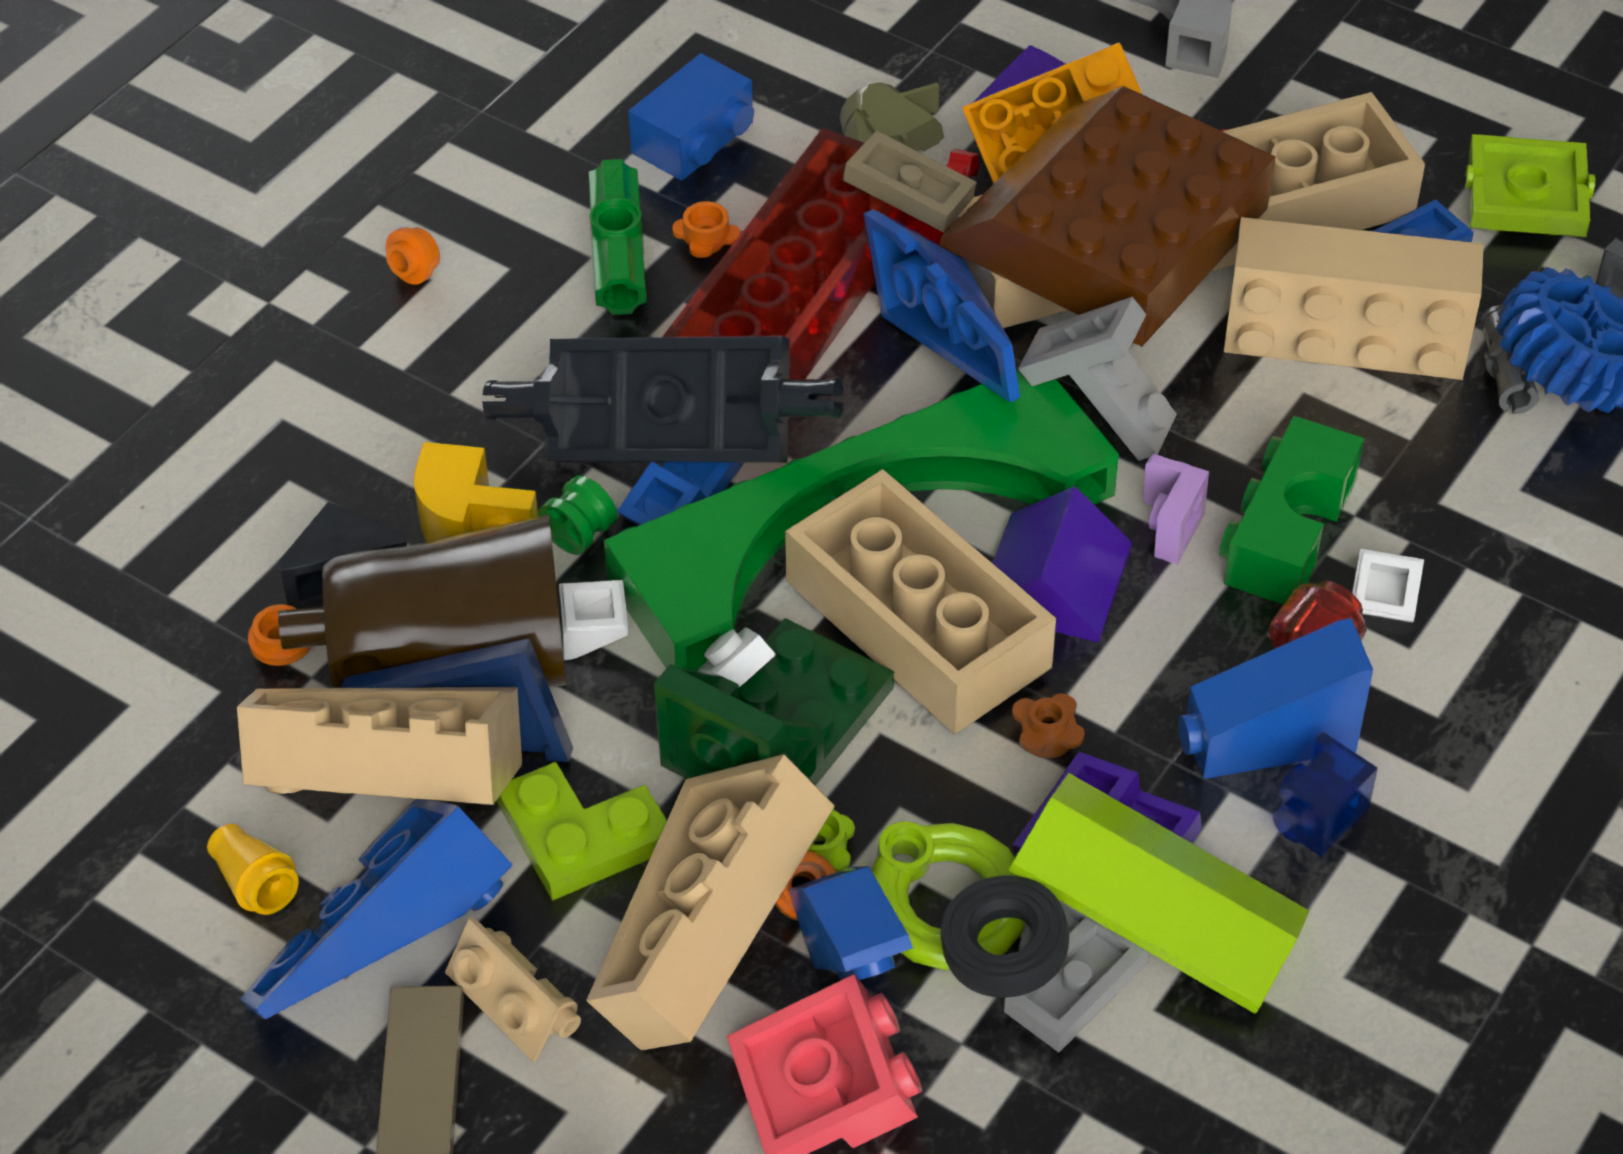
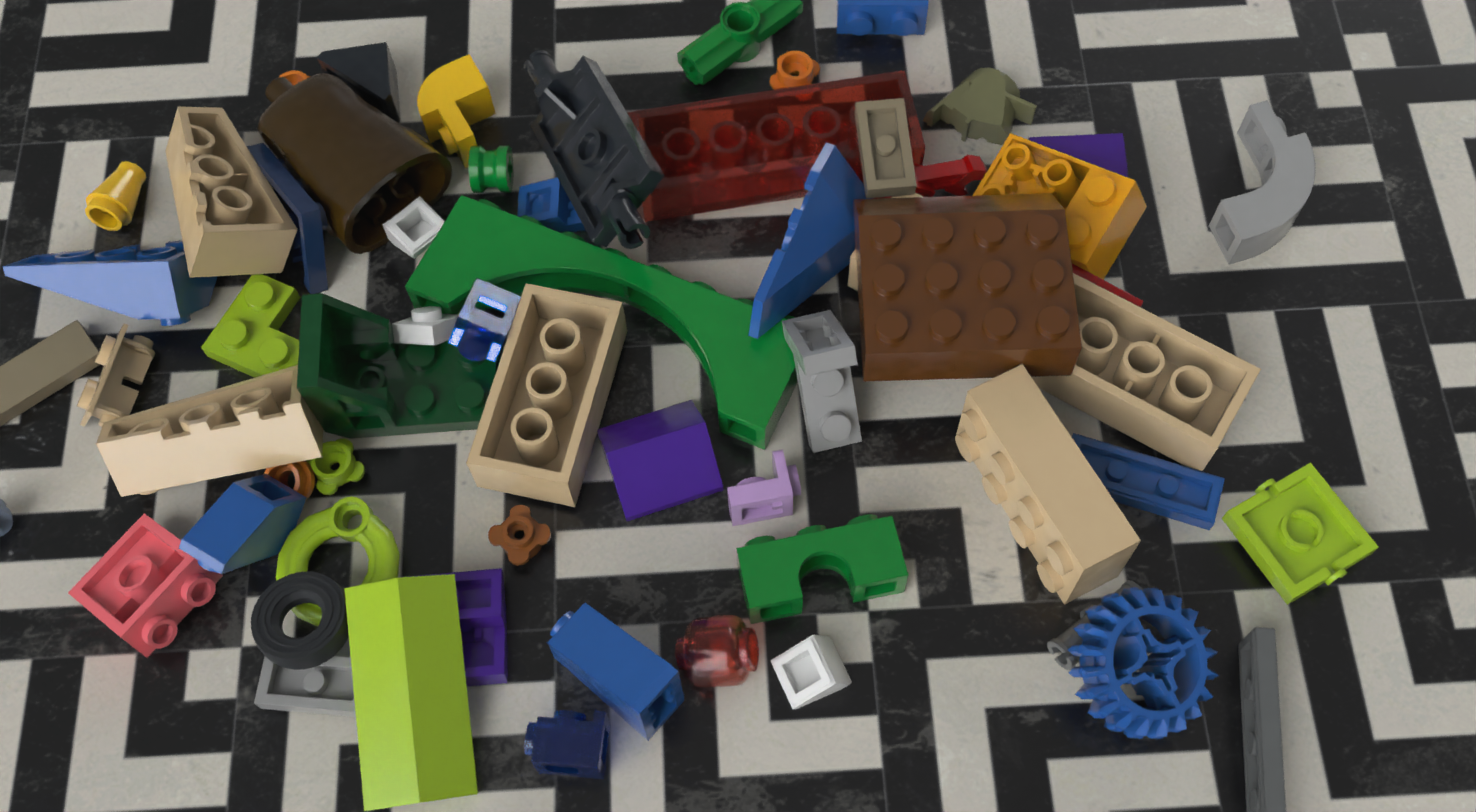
camera: 55 degrees right, 15 degrees up
(789, 595) = (478, 332): none -> clear blue brick

